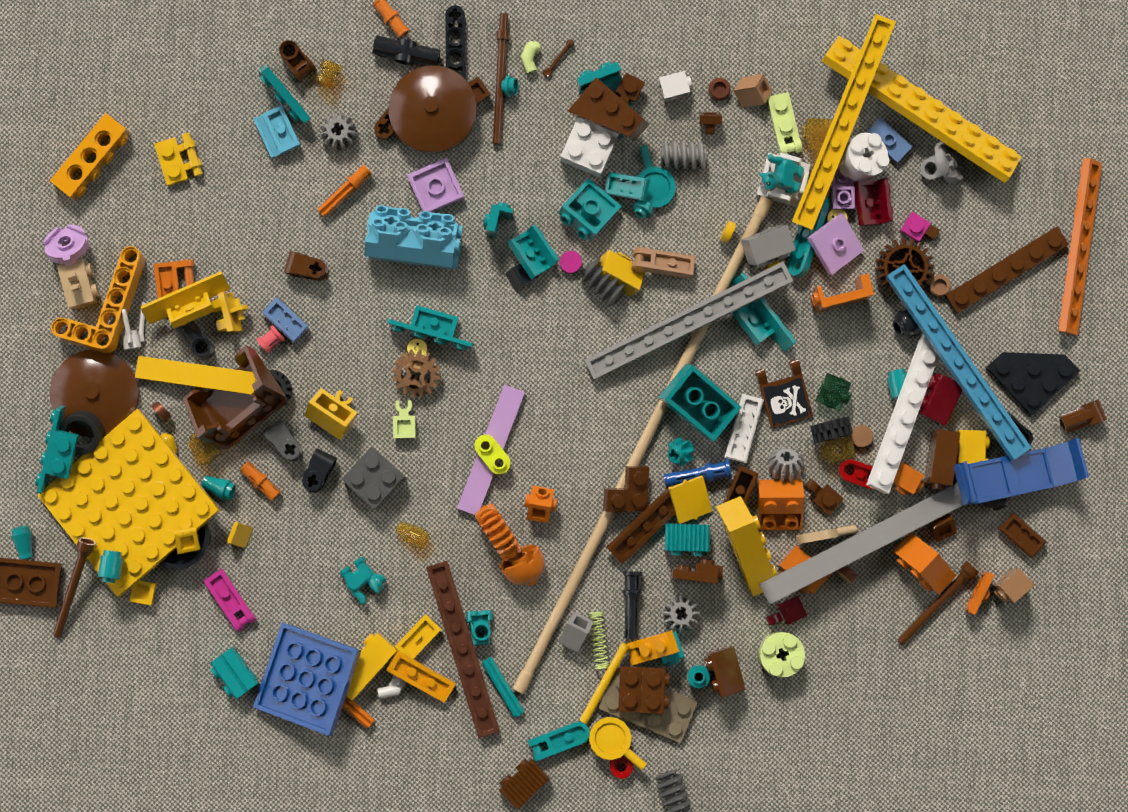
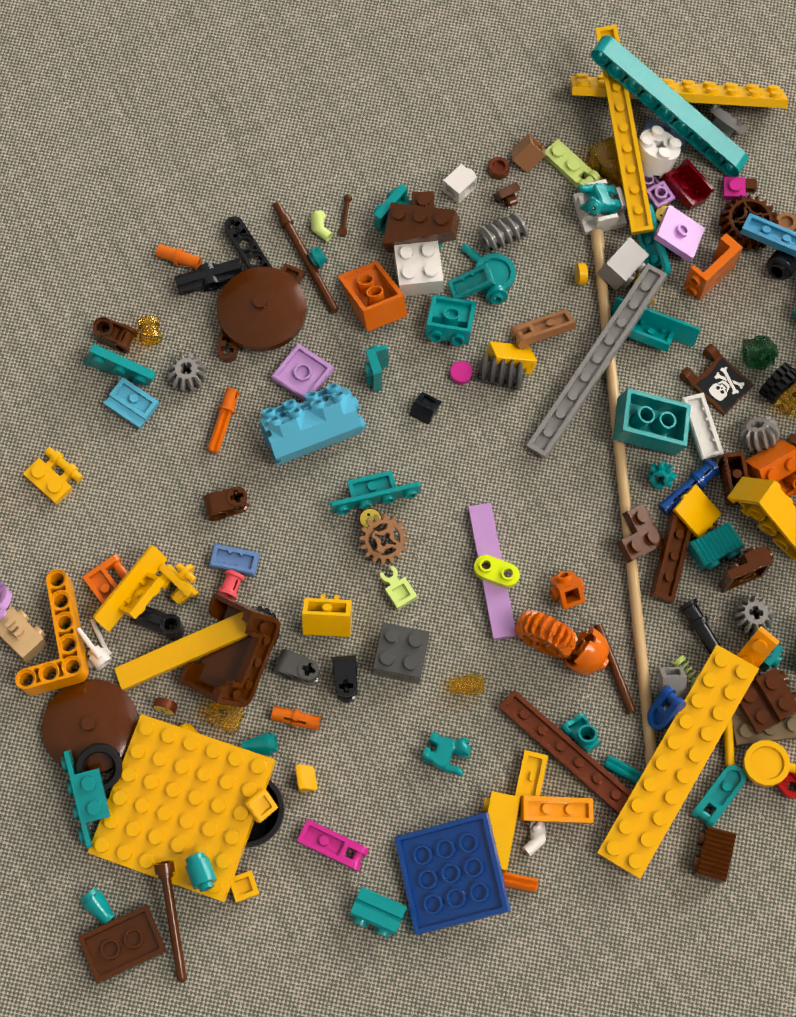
camera: 30 degrees left, 15 degrees down
(533, 251) = (424, 378): teal bracket -> none
(536, 148) = (373, 295): none -> orange slope
(540, 590) = (617, 676): none -> reddish brown bar
(540, 695) = (677, 762): none -> yellow plate
(548, 649) = (659, 714): none -> blue plate
(896, 124) = (669, 106): none -> beam

